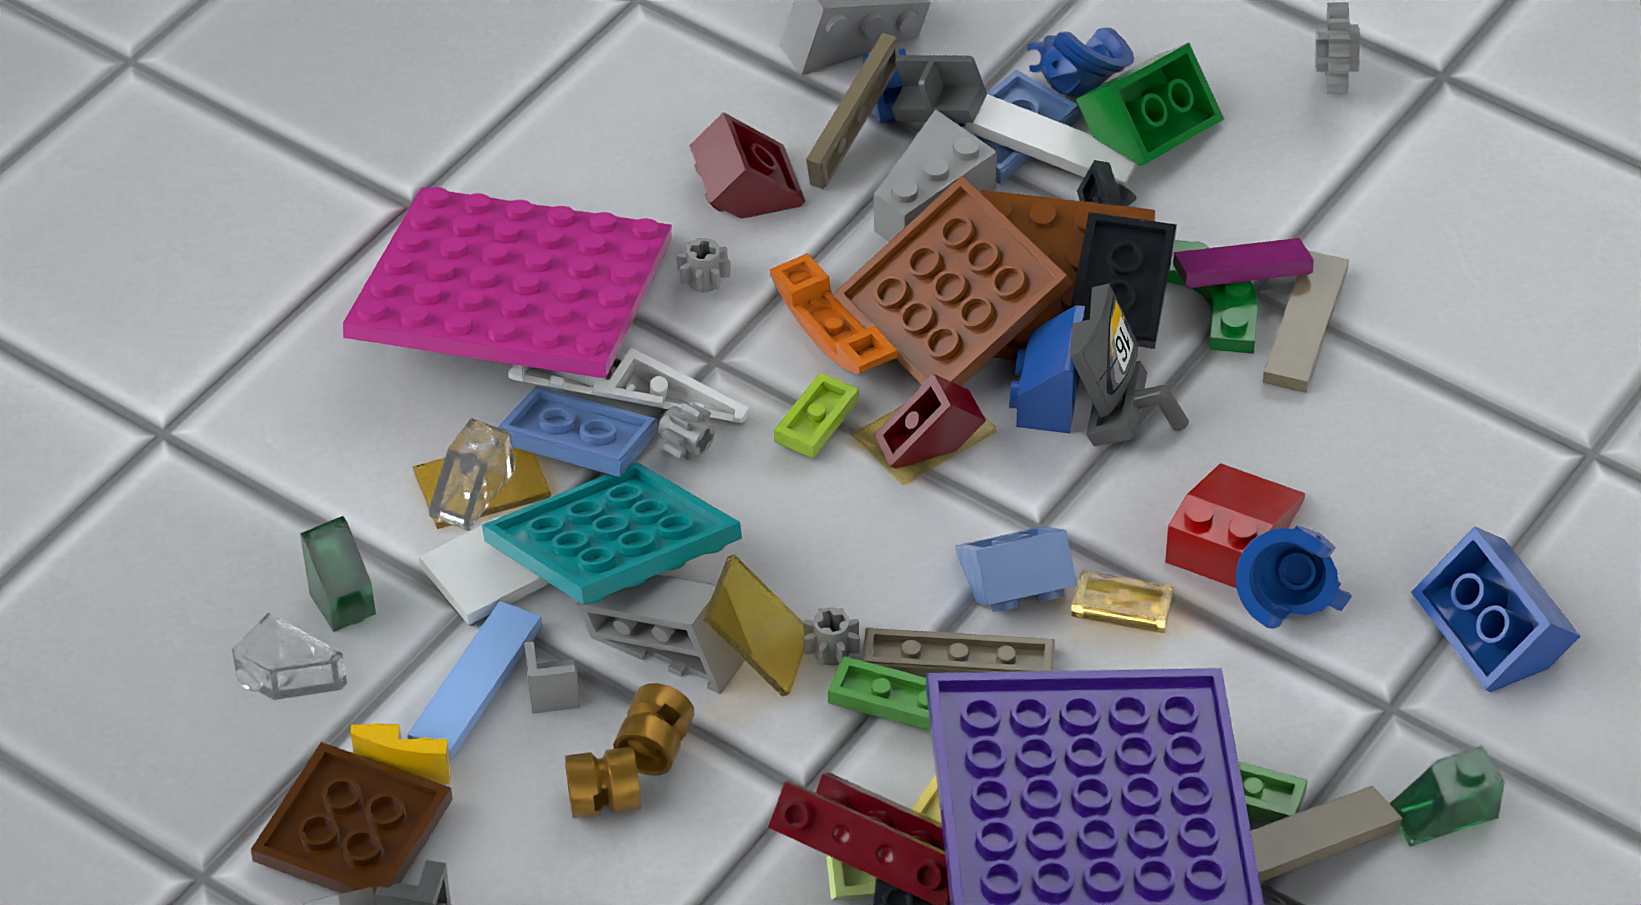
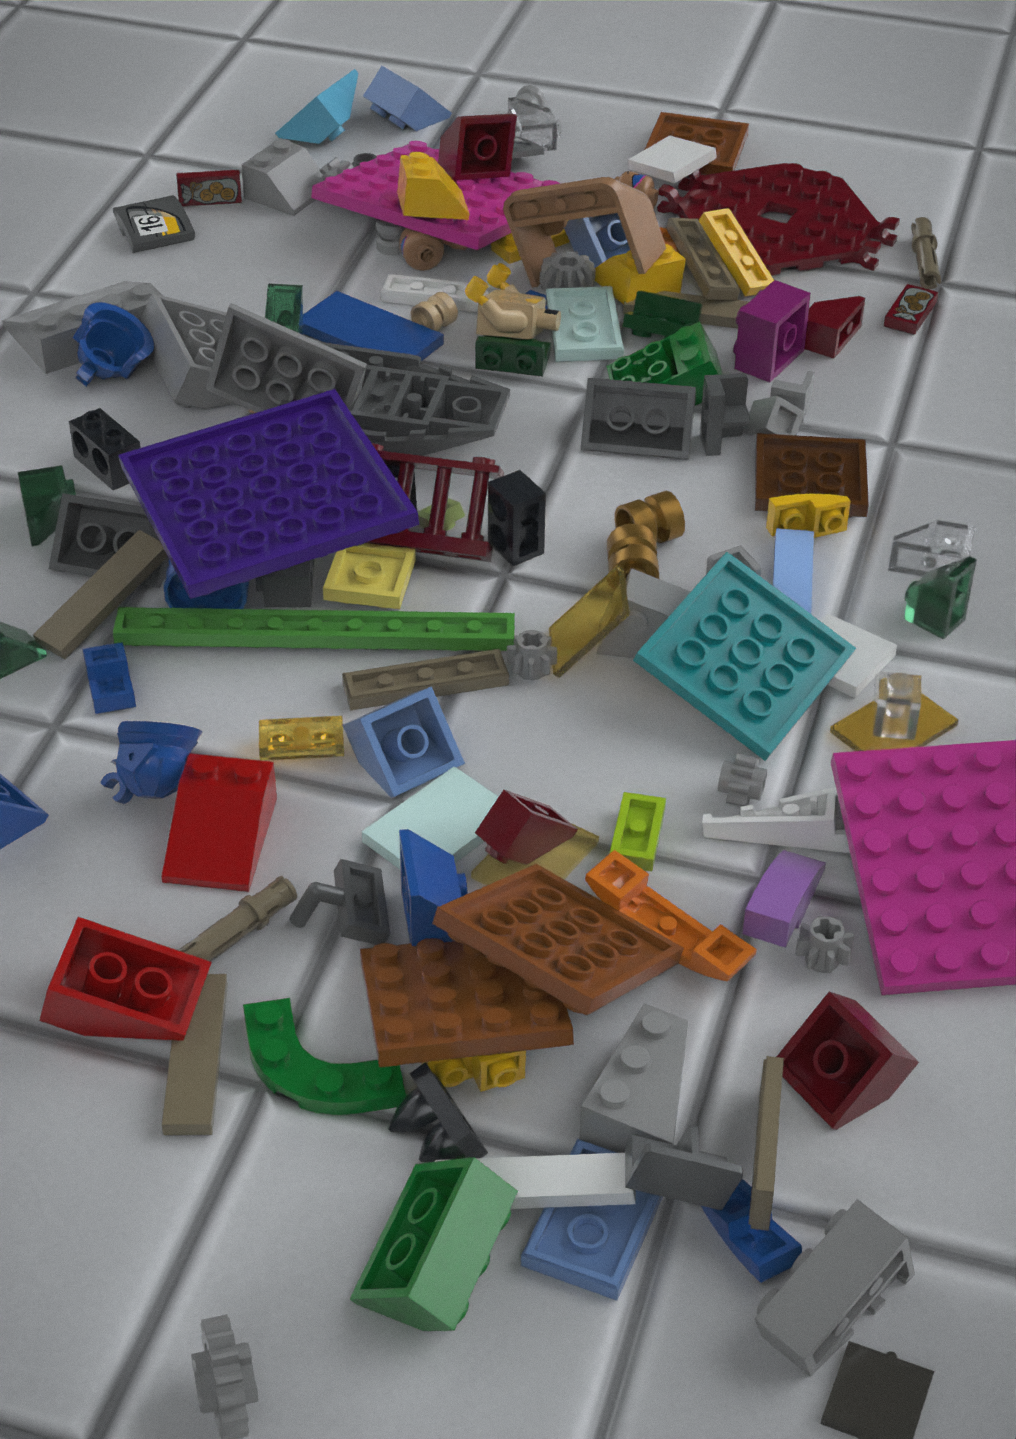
camera: 160 degrees right, 5 degrees down
(579, 431) = (806, 749): medium blue tile -> none
(713, 314) = (782, 897): none -> medium lavender slope
(761, 783) = (516, 517): none -> black brick
(1009, 479) = (441, 812): none -> light aqua tile
(1080, 67) = (533, 1280): blue helmet -> none
(1104, 350) = (381, 881): dark grey slope -> none
(1135, 262) = (390, 979): black tile -> none
(1227, 421) = (249, 915): none -> dark tan pin
(1243, 262) = (272, 1067): magenta tile -> none
(1320, 740) = (109, 678): none -> blue slope
(1367, 365) = (122, 986): none -> red slope

